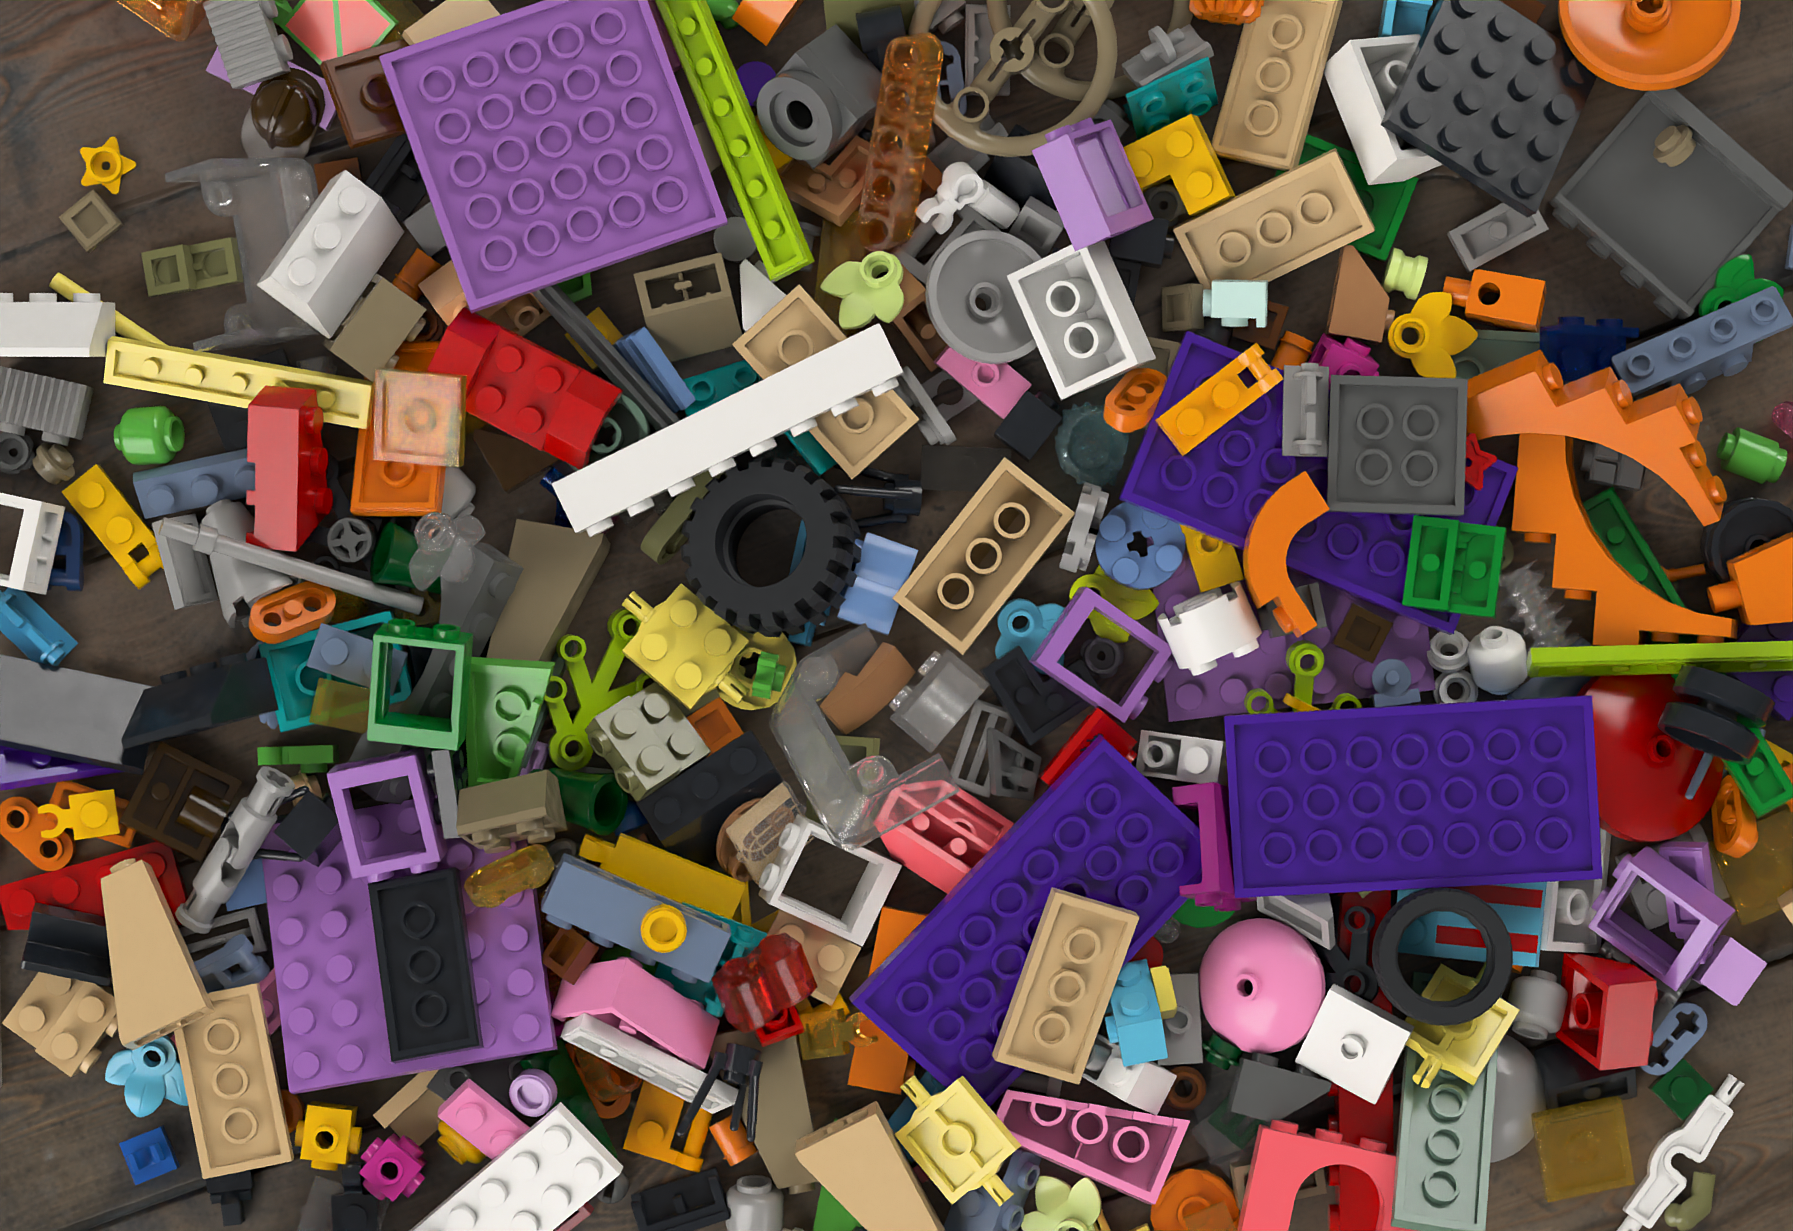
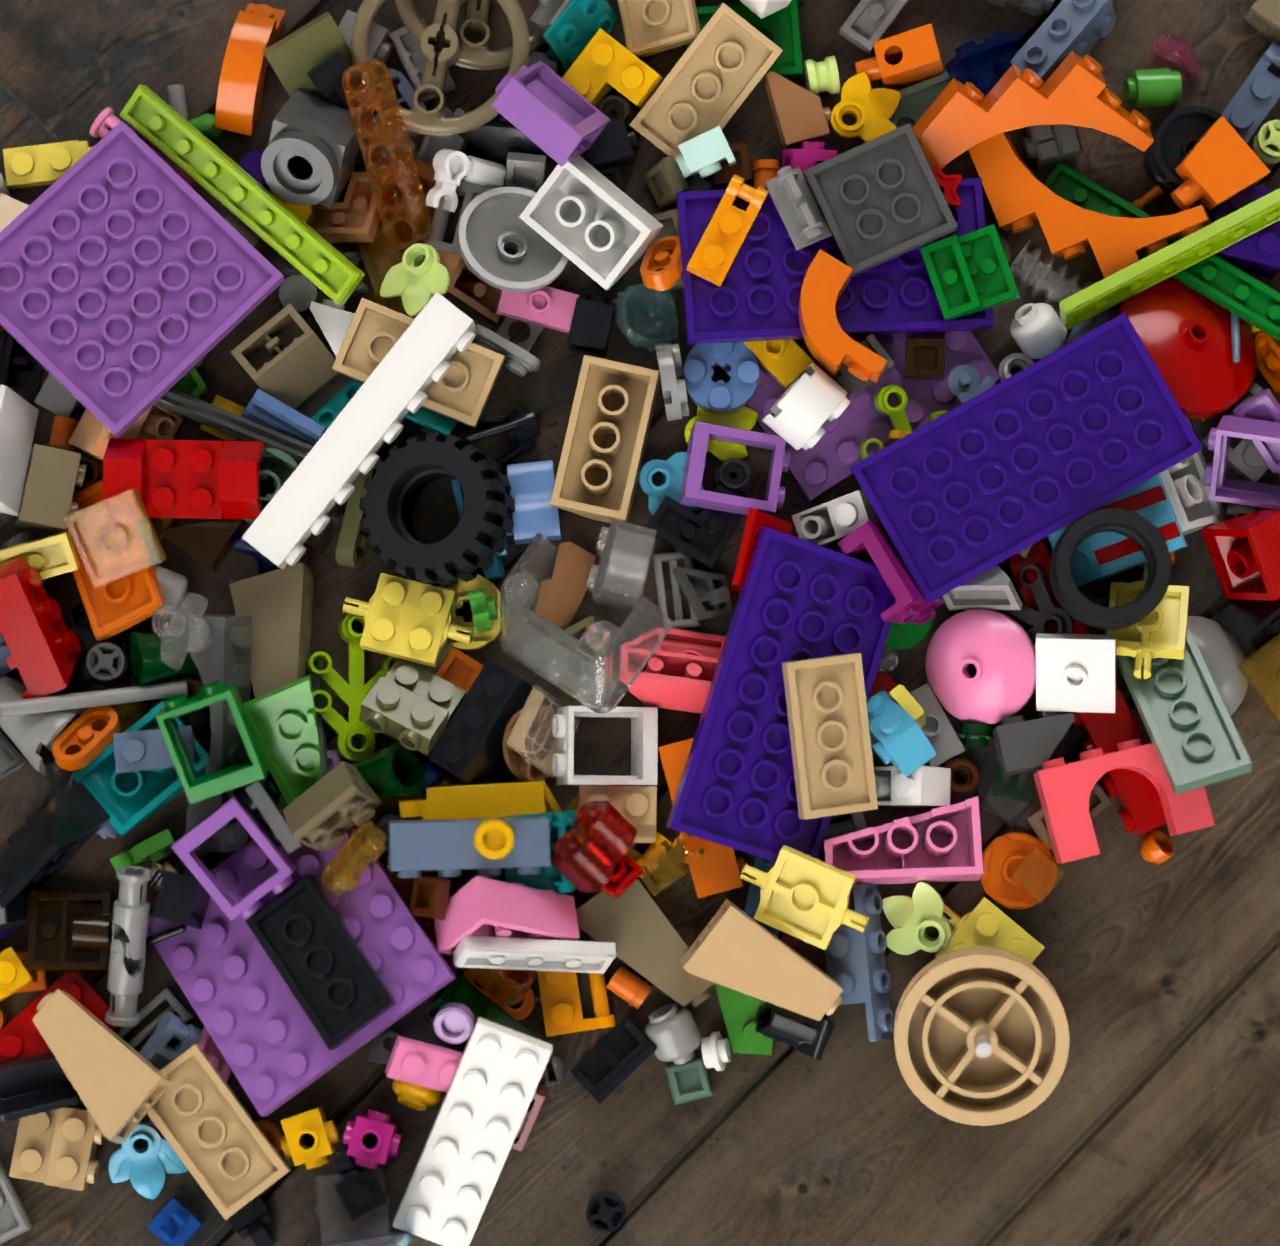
camera: 25 degrees left, 5 degrees down
(250, 889) = (156, 974): medium blue tile -> none
(341, 706) = (158, 790): clear yellow panel -> none
(412, 1109) = (366, 1085): tan panel -> none
(740, 1067) = (608, 923): black plant -> none
(1448, 643) = (997, 344): white plate -> none
(1540, 1004) = (1204, 577): light grey head -> none
(1716, 714) = (1226, 282): black wheel -> none

